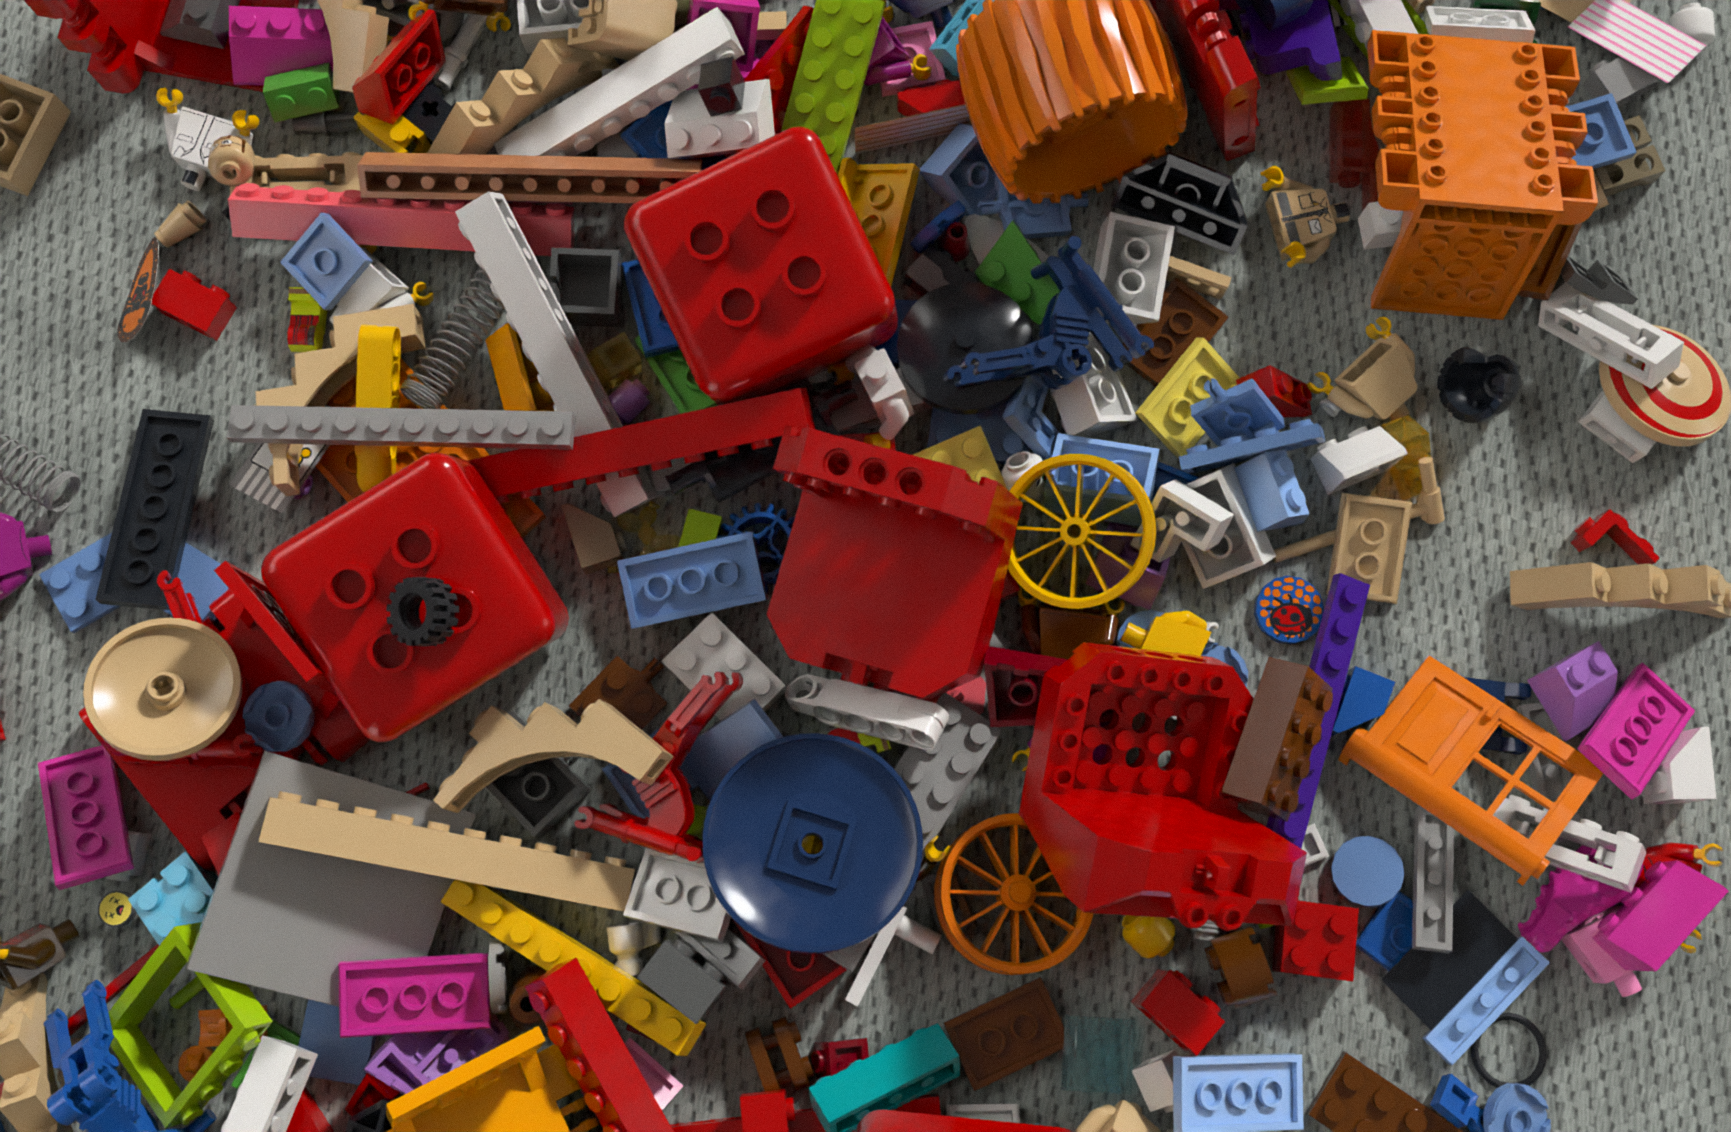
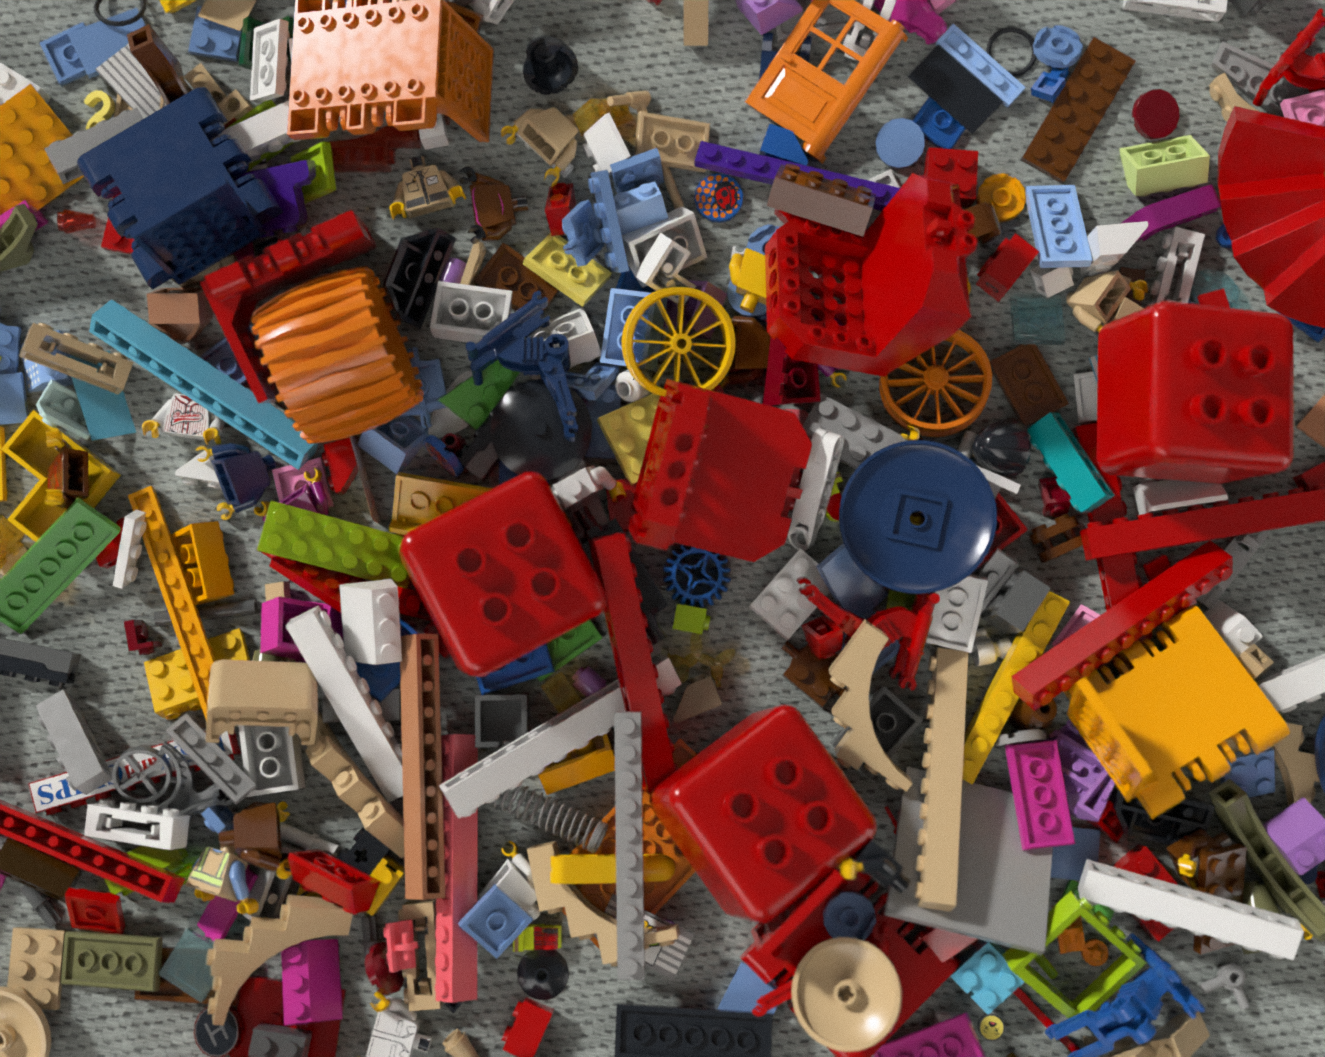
camera: 90 degrees left, 5 degrees up
(231, 160) = (415, 1007): tan head -> none
(262, 343) = (548, 961): none -> black dish
(287, 130) = (378, 970): none -> dark red tile
(301, 92) = (347, 961): bright green brick -> none
(311, 148) = (400, 945): none -> coral hips
(331, 741) = (878, 864): none -> black torso
(439, 611) = (798, 806): black tyre -> none
(656, 703) = (823, 637): none -> red slope
(692, 580) = (727, 620): medium blue plate -> none
(721, 86) = (350, 619): black brick -> none
(913, 983) = (1003, 447): none -> black hair
(1188, 249) = (453, 271): none -> medium lavender brick
(1274, 1016) = (994, 190): none -> light orange tile
(1278, 304) = (492, 206): none -> reddish brown torso
(1324, 494) = (637, 171): none -> medium blue plate
(1432, 883) = (907, 99): light grey plate -> none

